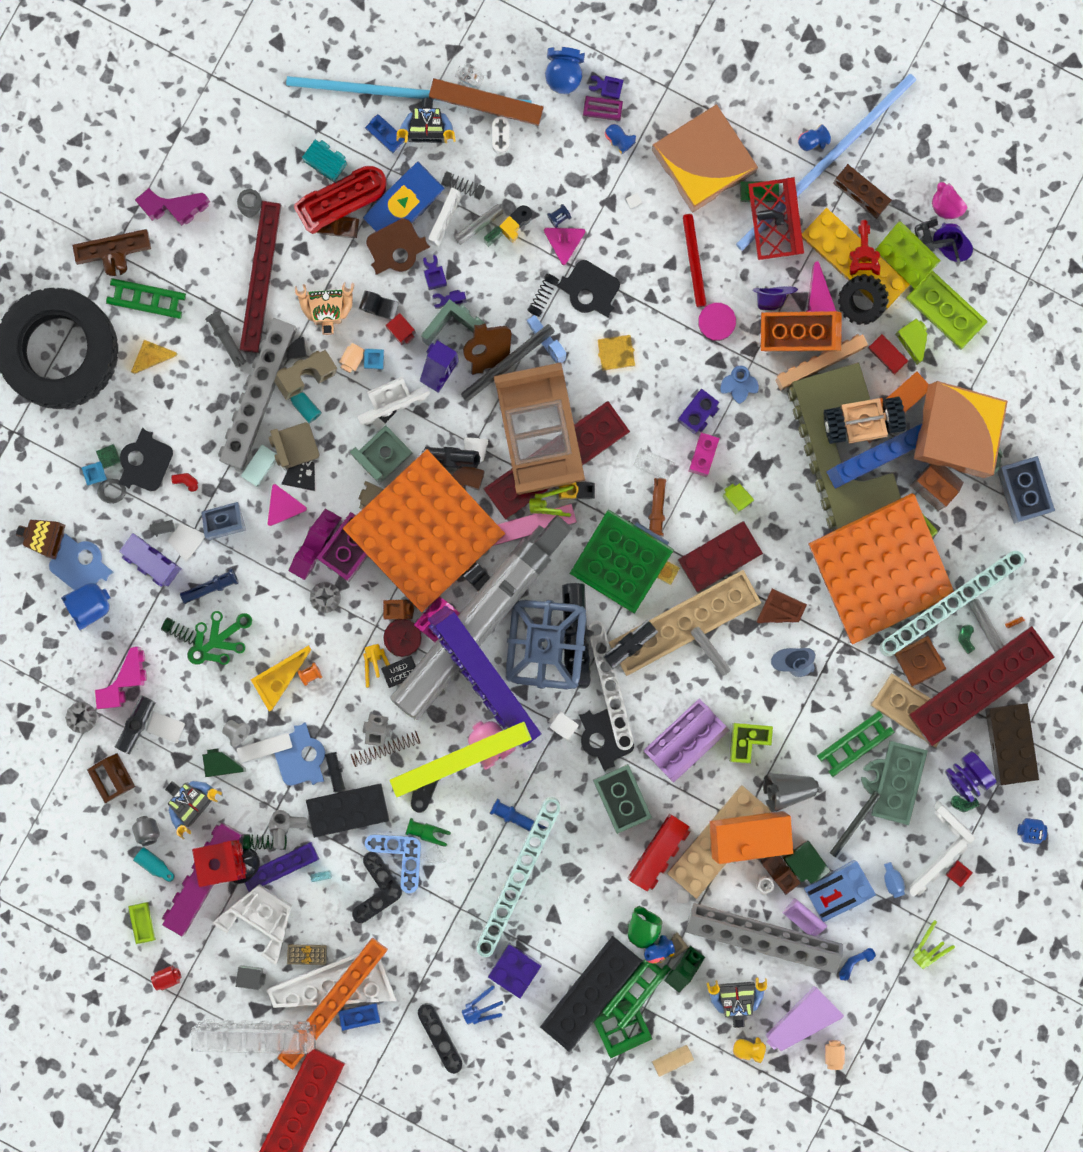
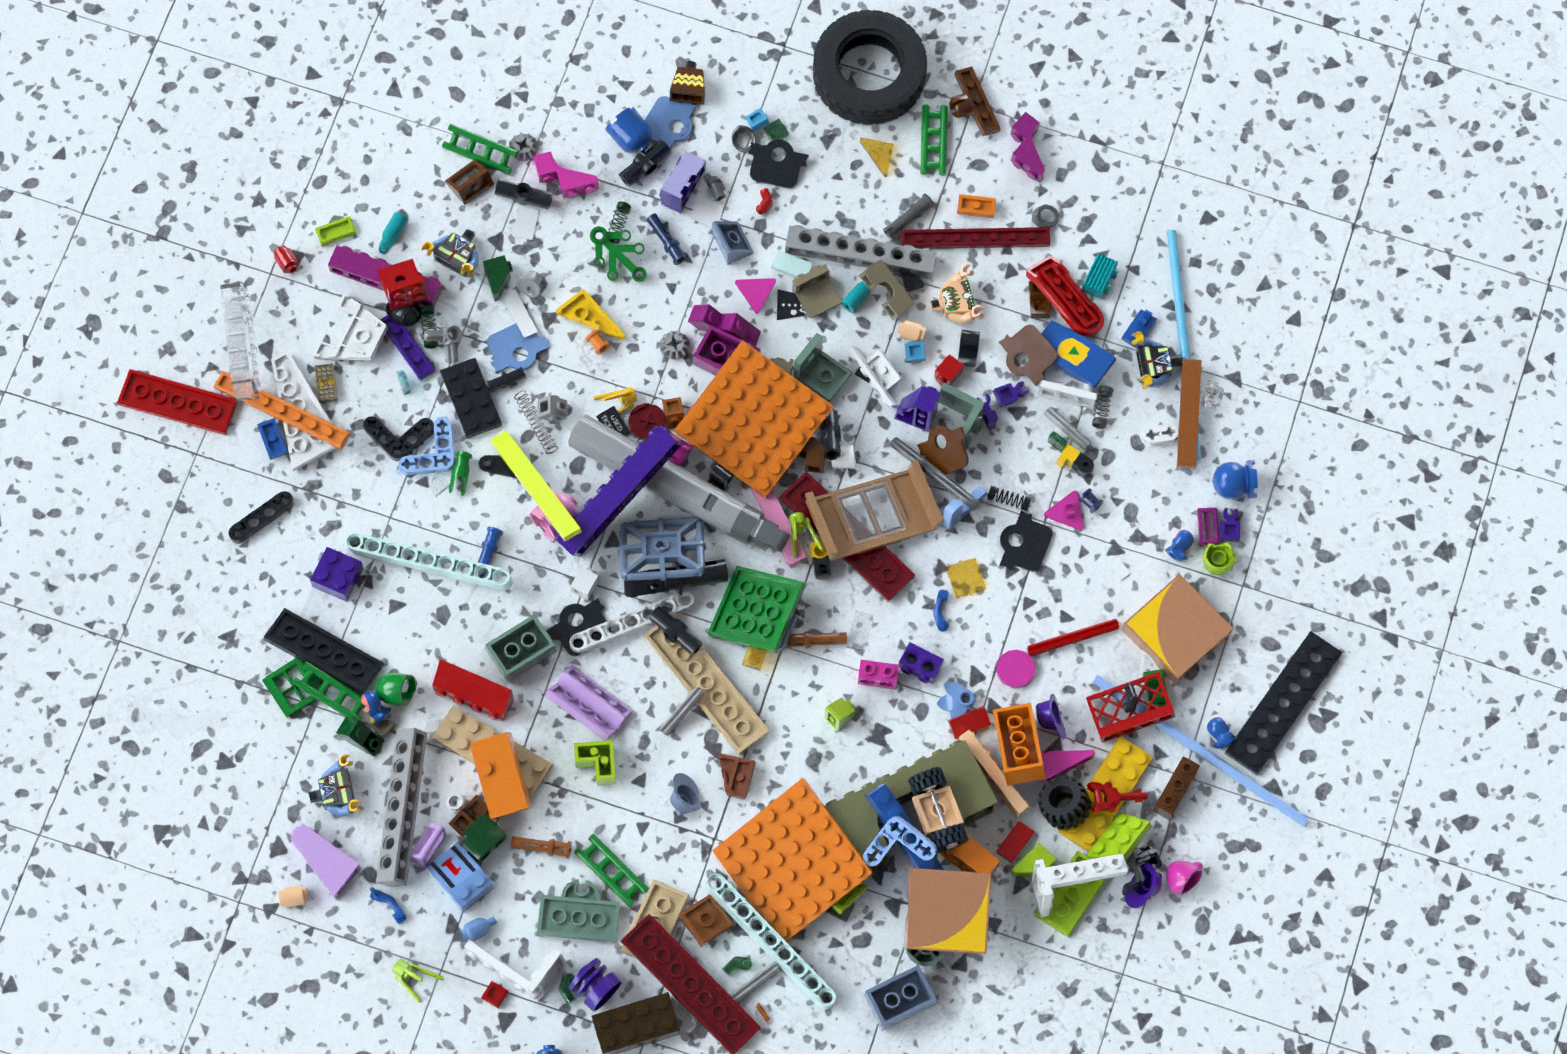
camera: 80 degrees right, 15 degrees down
(77, 773) = (485, 159): none -> green bar
(122, 595) = (644, 163): none -> black piece
(145, 831) = (423, 219): flat silver head -> none
(227, 269) = (976, 206): none -> orange plate
(250, 977) = (296, 333): dark grey brick -> none
(472, 1014) = (289, 543): blue plant -> none
(639, 103) = (1219, 558): none -> lime hair
(659, 384) = (941, 623): none -> blue piece
(673, 1060) = (267, 738): tan axle -> none
(720, 556) = (779, 708): dark red plate -> none
(747, 1050) = (286, 811): yellow animal -> none
(764, 376) = (970, 721): none -> red tile
(788, 790) = (554, 808): dark grey cone -> none
(791, 60) = (1286, 715): none -> black plate
(825, 798) = (517, 842): none -> dark orange pin
(855, 823) = (530, 880): pearl dark grey bar -> none
(885, 465) = (893, 835): none -> light blue beam
(937, 485) = (889, 907): dark orange slope -> none
(945, 330) = (1072, 873): none -> white bracket

